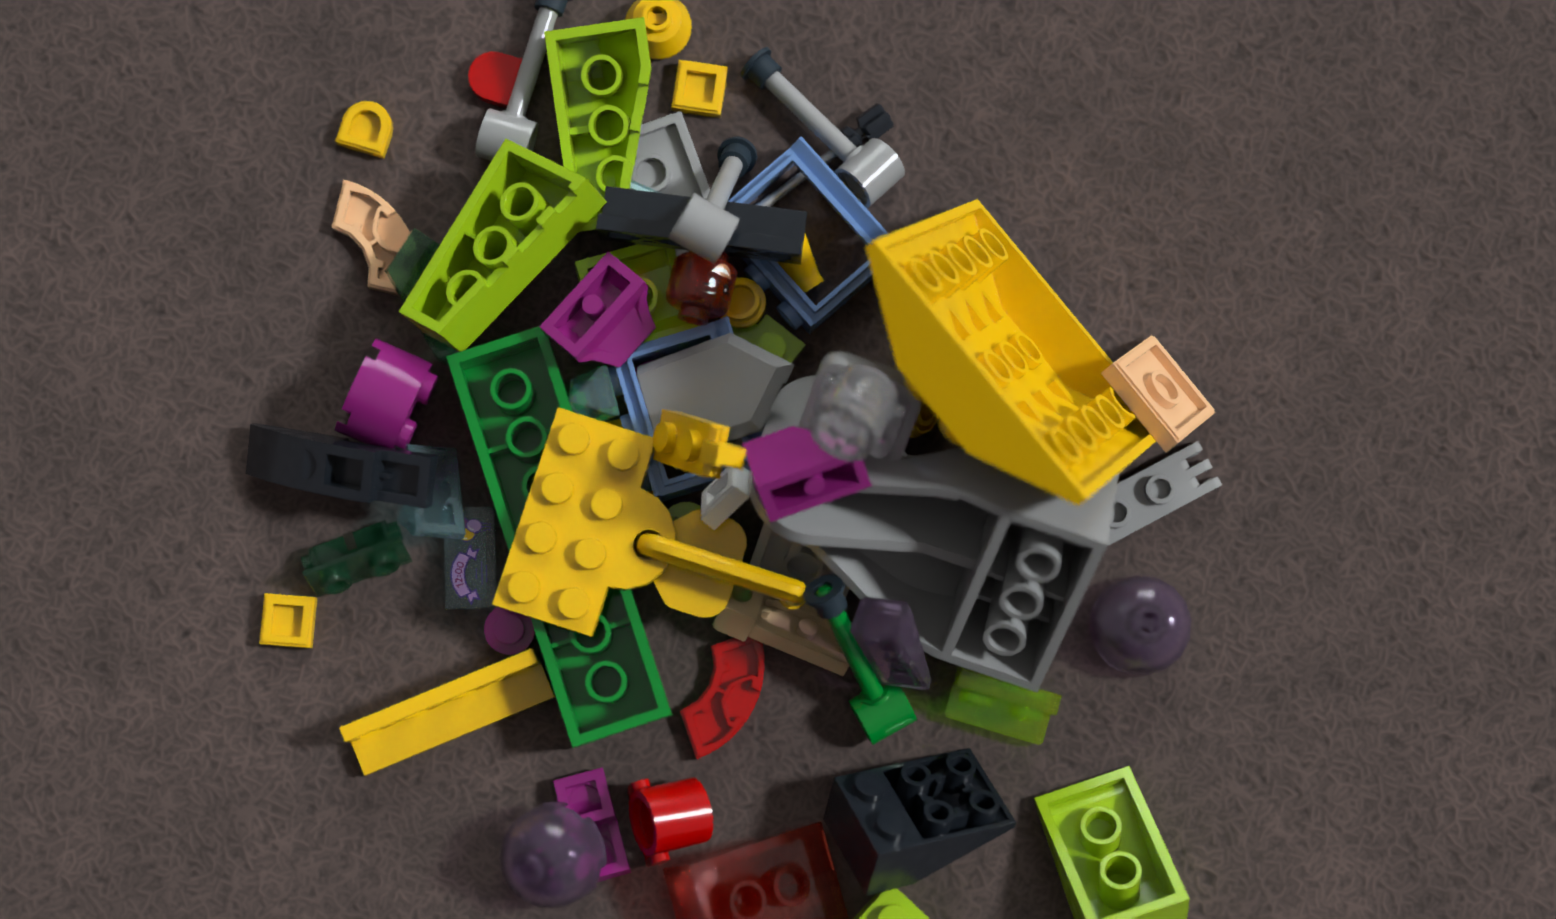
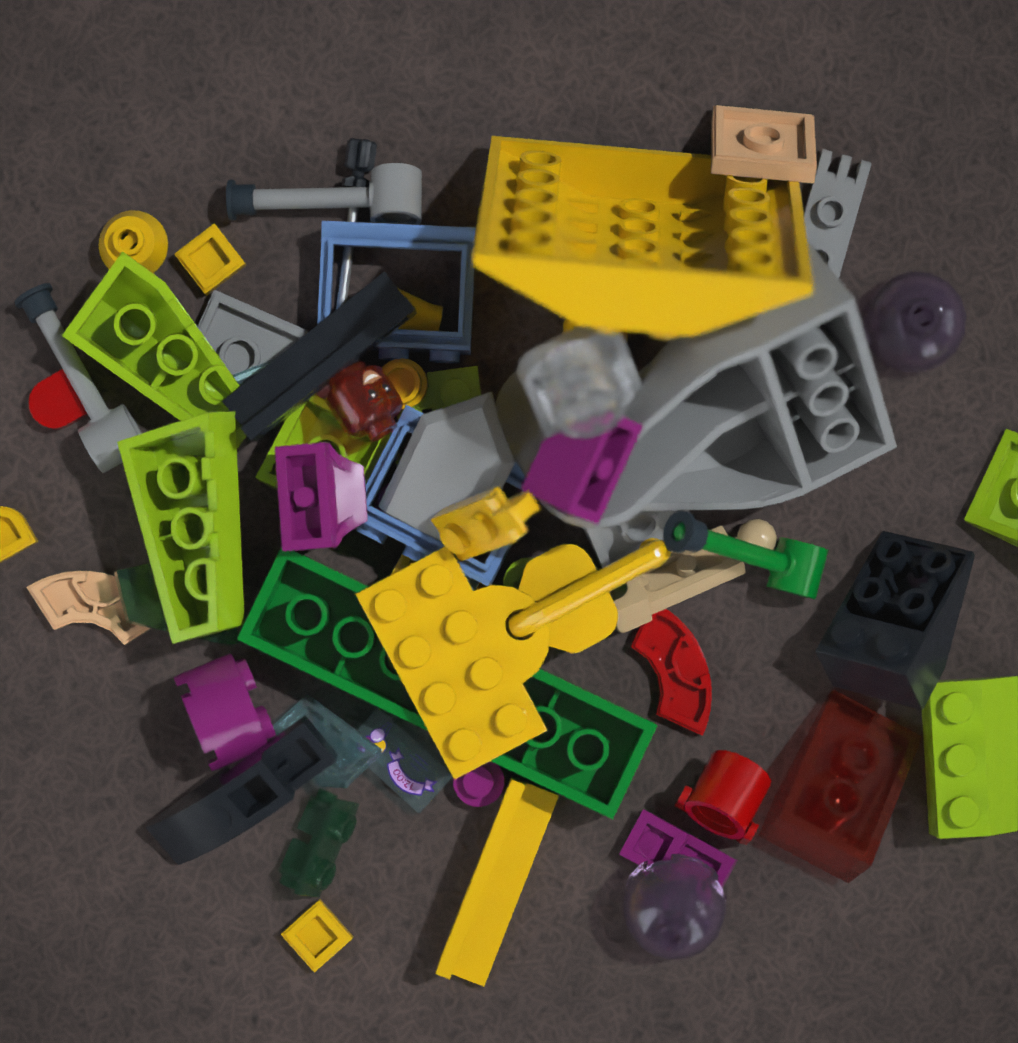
camera: 35 degrees left, 5 degrees up
(594, 395) = (369, 558): clear light blue slope -> none
(704, 223) = (324, 359): light grey piece -> none
(724, 496) = (541, 539): white tile -> none
(891, 642) = (760, 517): clear purple slope -> none
(1001, 706) = (877, 481): clear neon green bracket -> none

